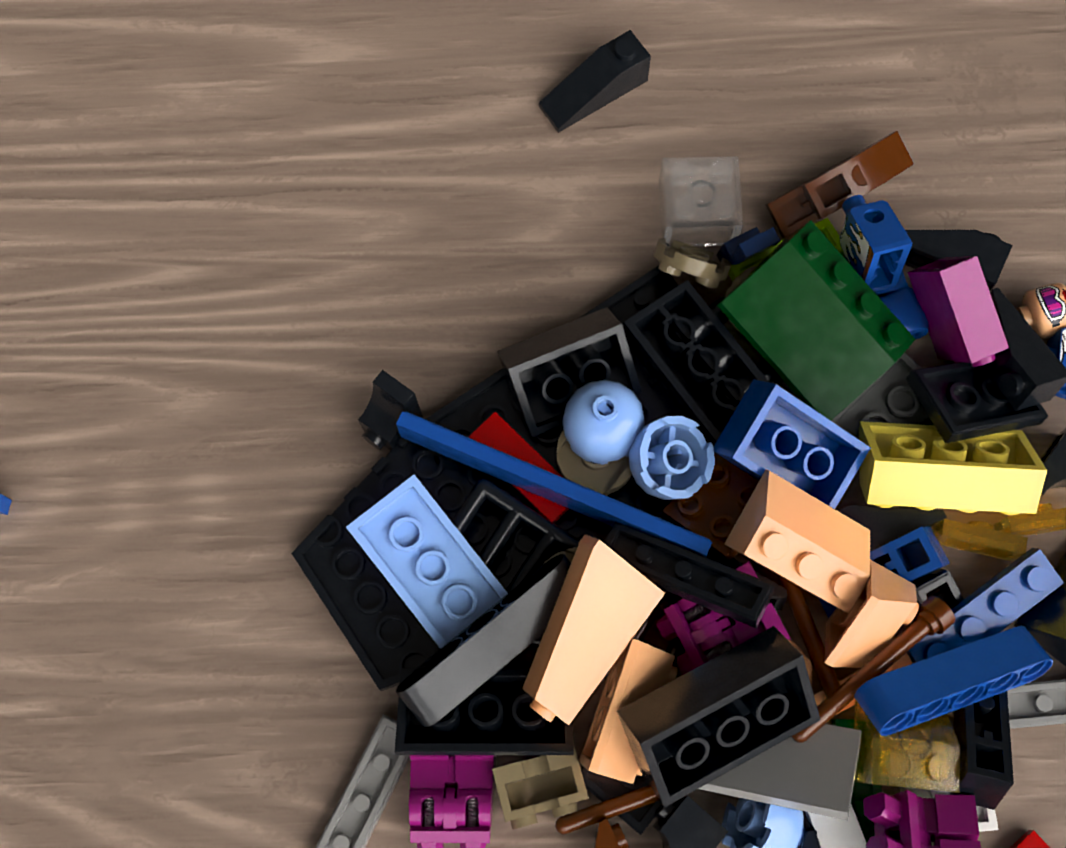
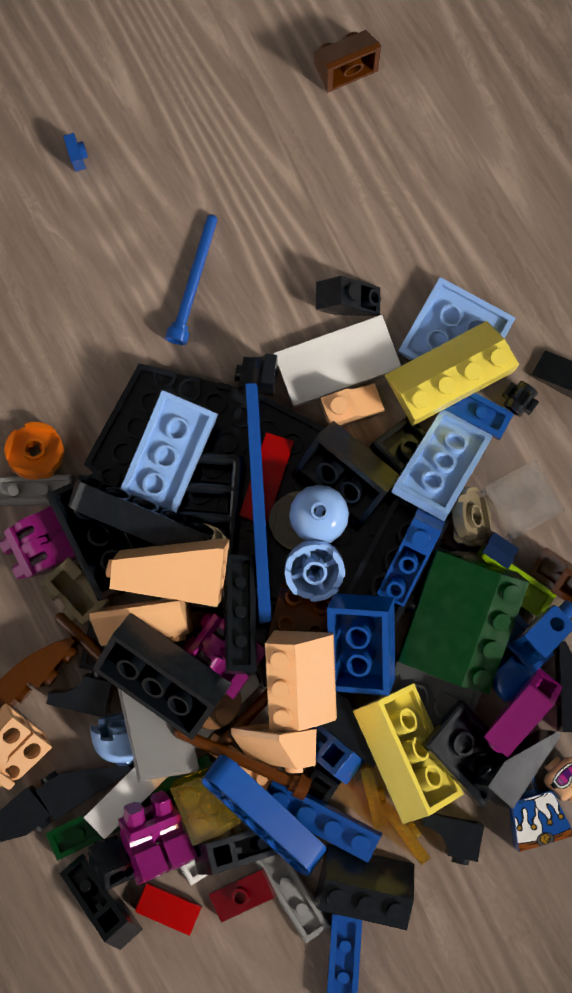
camera: 65 degrees right, 10 degrees up
(84, 136) = (347, 59): none -> reddish brown slope
(281, 488) = (177, 332): none -> blue piece
(349, 751) = (38, 466): none -> orange plate
(356, 273) = (347, 297): none -> black slope
(426, 321) = (337, 361): none -> white tile
(470, 181) = (449, 314): none -> light blue plate
(485, 333) = (351, 405): none -> light nougat arch
(511, 199) = (451, 372): none -> light yellow slope
(558, 207) = (482, 414): none -> blue plate
(577, 292) = (398, 444): none -> black tile
(581, 148) = (520, 398): none -> black gear
(617, 258) = (442, 464): none -> light blue plate
(710, 336) = (411, 556): none -> blue slope
(1038, 767) = (242, 895): none -> dark red plate

